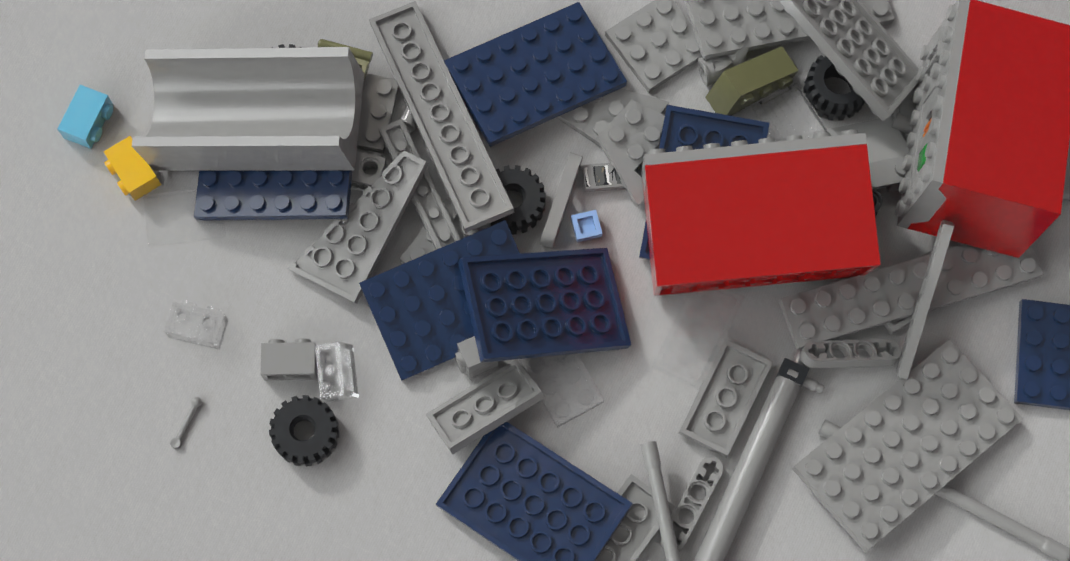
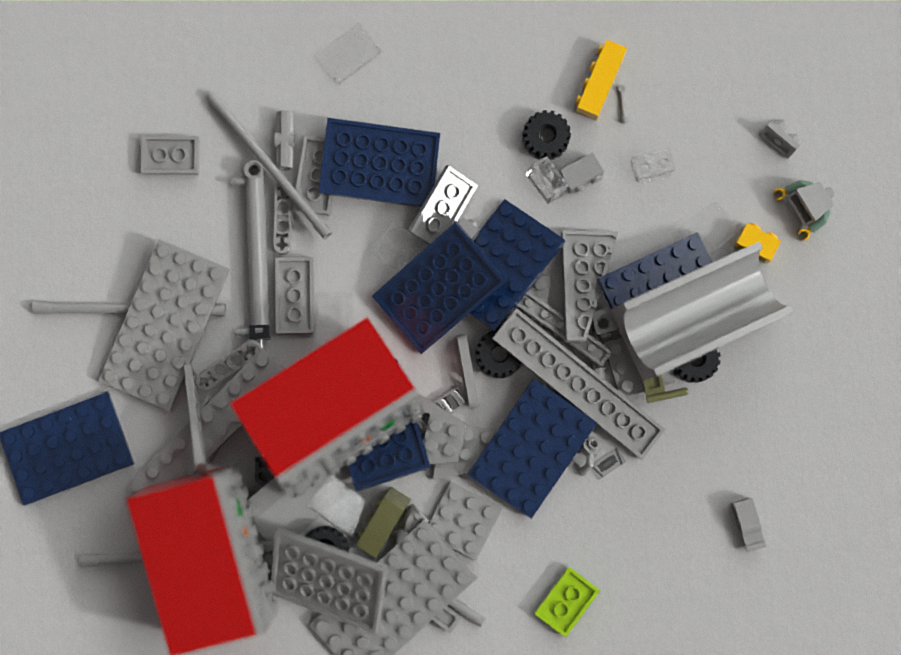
camera: 150 degrees right, 10 degrees up
(22, 268) = (783, 142): none -> light grey tile
(40, 179) = (810, 203): none -> light grey torso
(86, 116) = (808, 261): medium azure brick -> none
(193, 465) = (601, 79): none -> yellow brick
(456, 21) = (608, 463): none -> sticker
(470, 37) = (590, 452): none -> light grey plate
(586, 226) = (442, 362): light blue plate -> none

